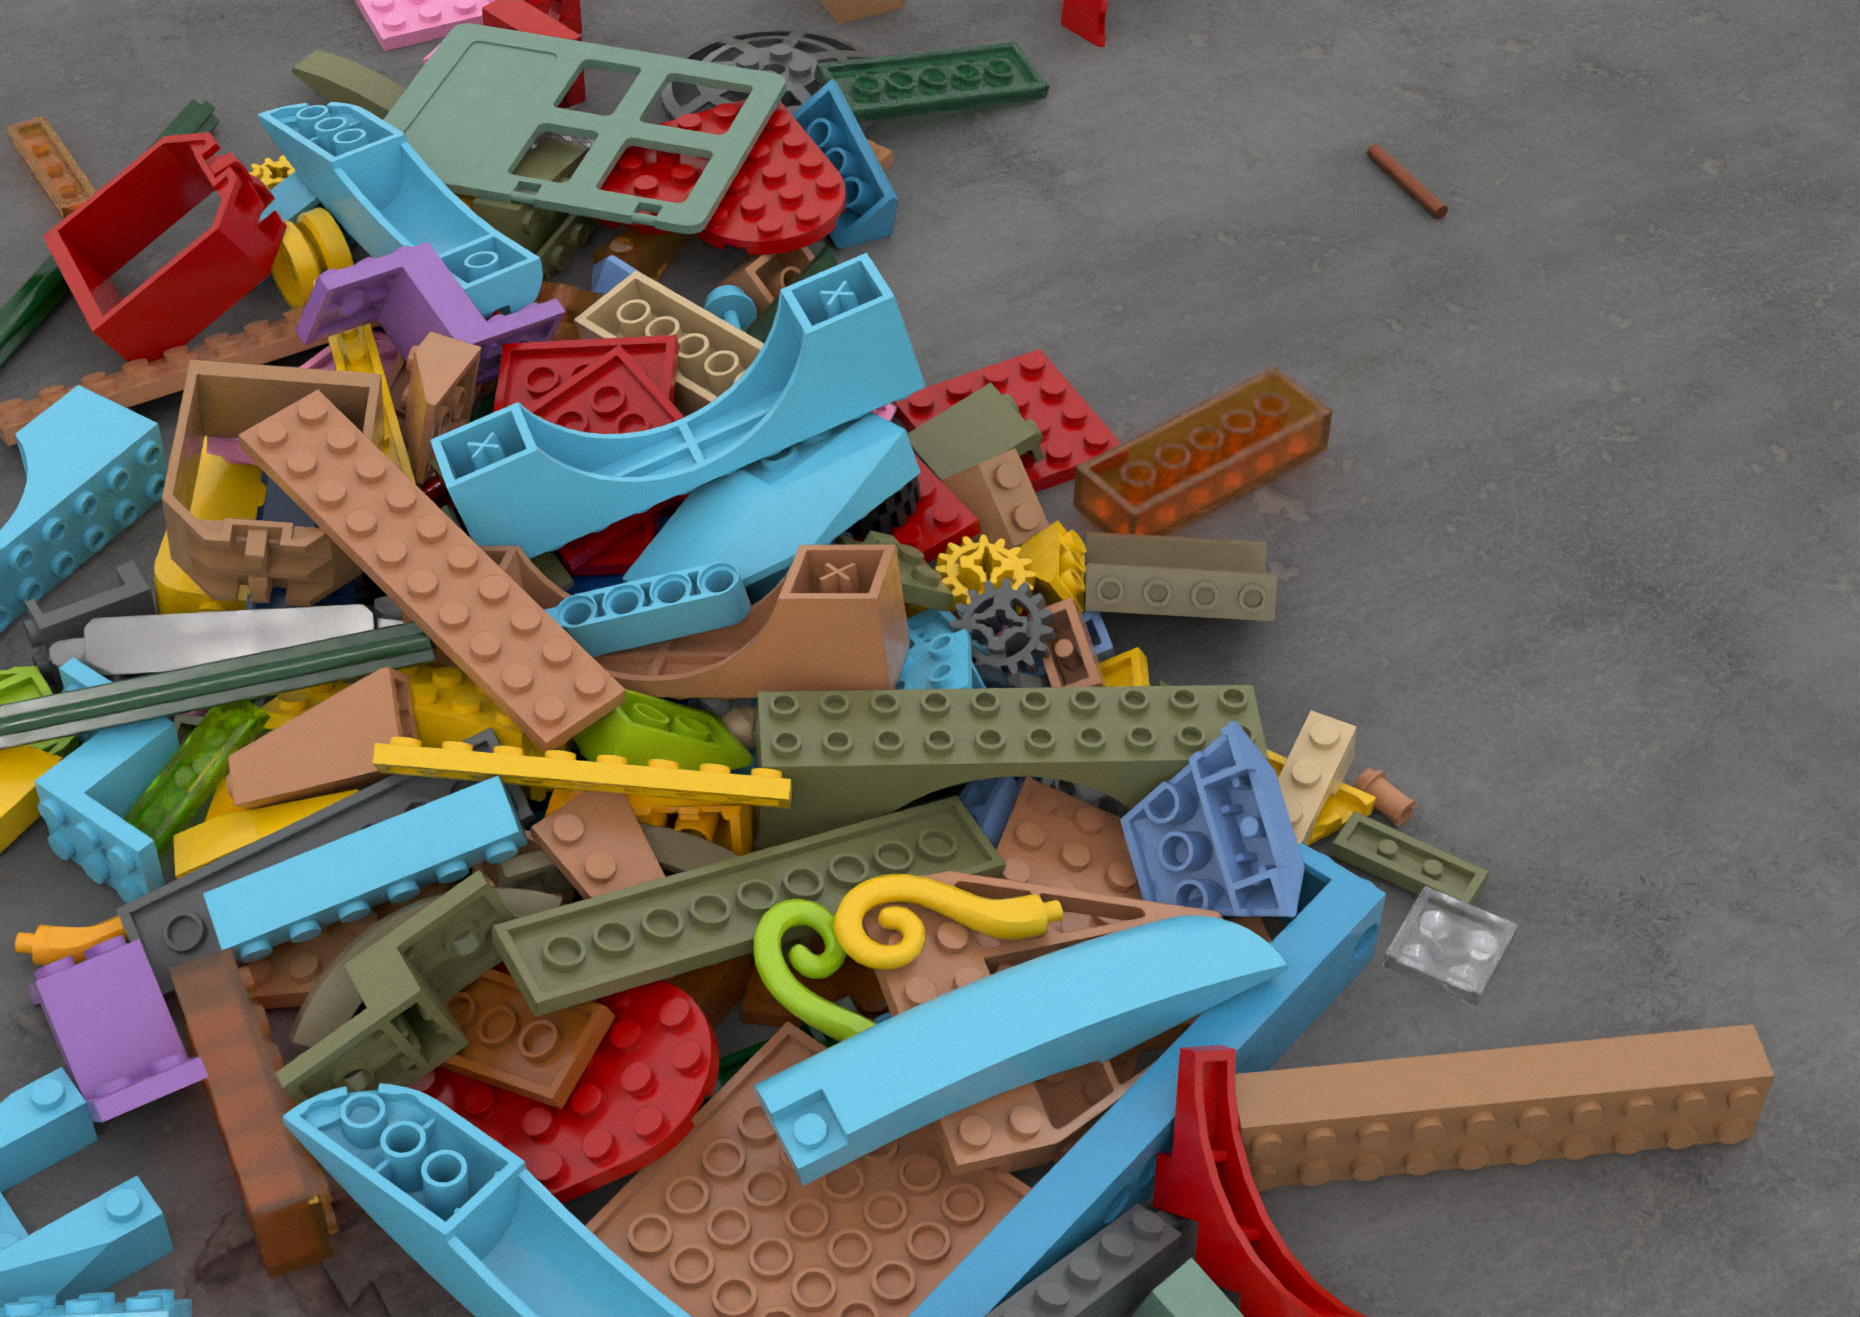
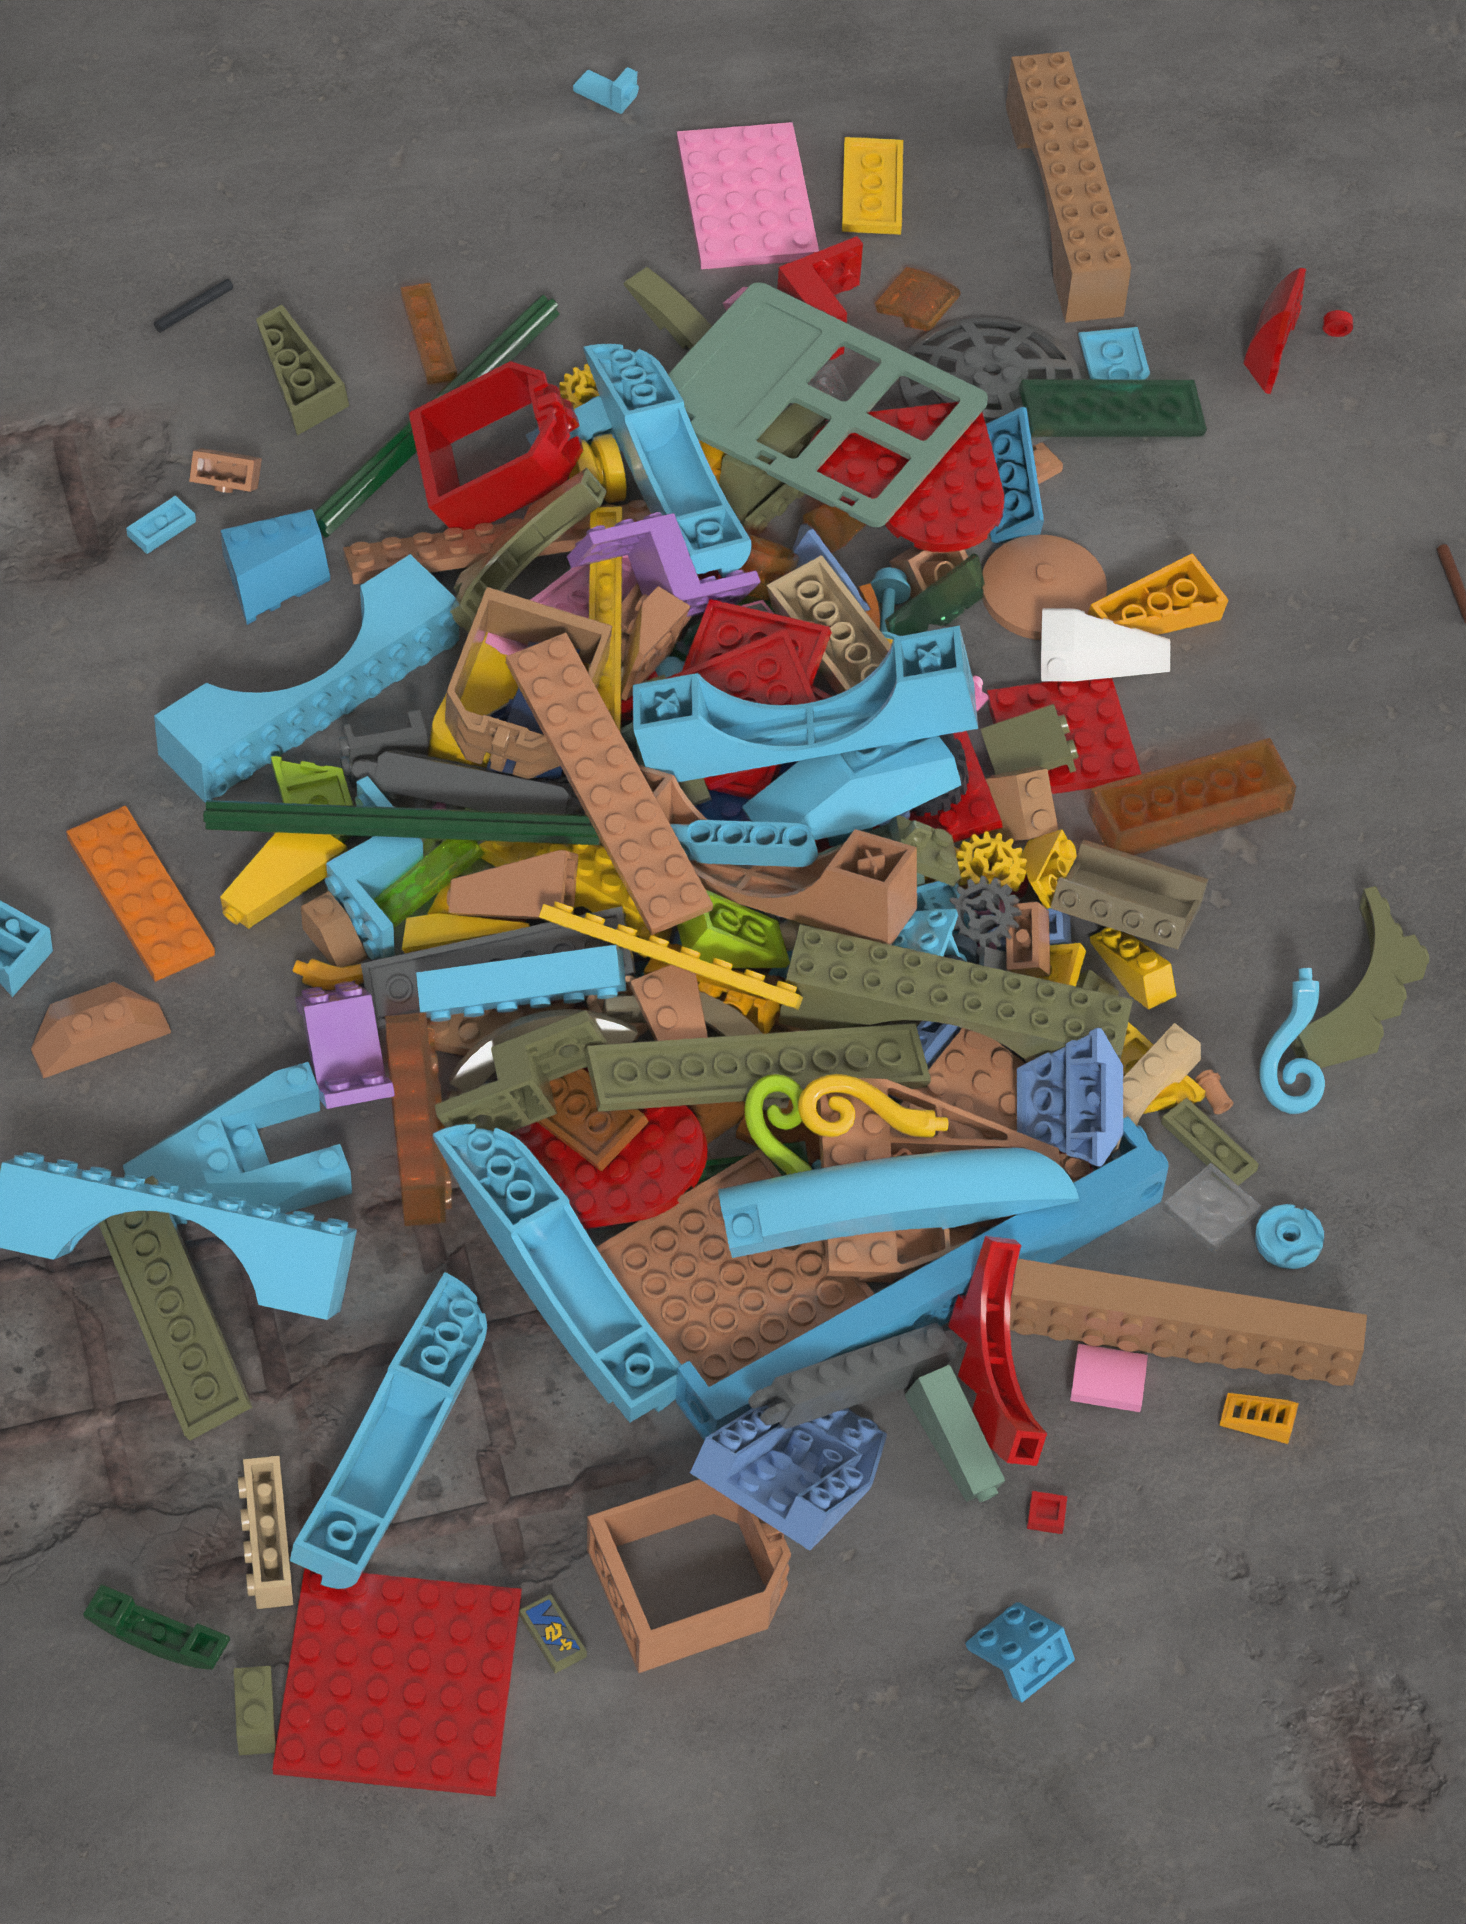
camera: 15 degrees right, 10 degrees up
(63, 879) = (332, 931): none -> medium nougat slope
(247, 323) = (525, 541): none -> olive arch
(658, 27) = (917, 298): none -> clear orange slope
(907, 34) = (1114, 354): none -> medium azure tile
(936, 274) = (1037, 575): none -> nougat dish
(1008, 319) = (1093, 648): none -> white wedge
(1068, 263) = (1165, 600): none -> light orange wedge
(1214, 660) = (1136, 966): none -> yellow slope
(1413, 1220) = (1109, 1378): none -> bright pink slope
(1465, 655) = (1304, 1004): none -> medium azure plant
(1538, 593) = (1355, 1025): none -> olive arch
(1571, 957) = (1294, 1223): none -> medium azure plate
(1666, 1198) = (1274, 1407): none -> light orange slope

